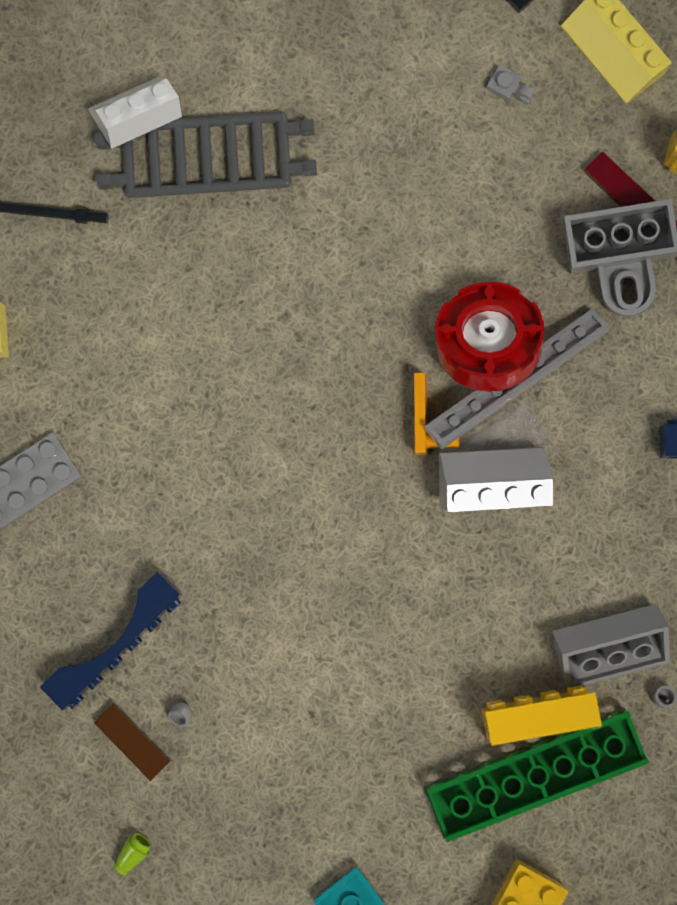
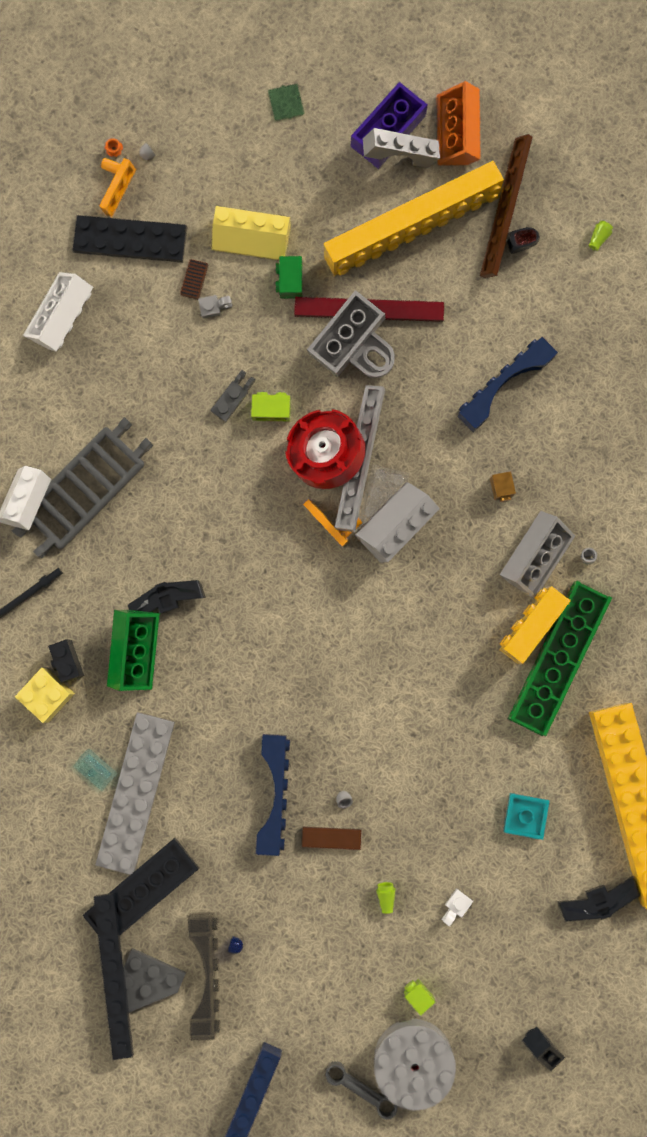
camera: 35 degrees left, 0 degrees up
(28, 315) = (65, 661): none -> black brick
(105, 365) = (132, 650): none -> green slope
(186, 342) = (166, 596): none -> black plate
(442, 197) = (232, 397): none -> dark grey hinge
(473, 243) = (271, 407): none -> lime brick
(514, 41) = (194, 279): none -> reddish brown tile
(617, 125) = (290, 277): none -> green brick
(640, 542) = (502, 486): none -> pearl gold brick

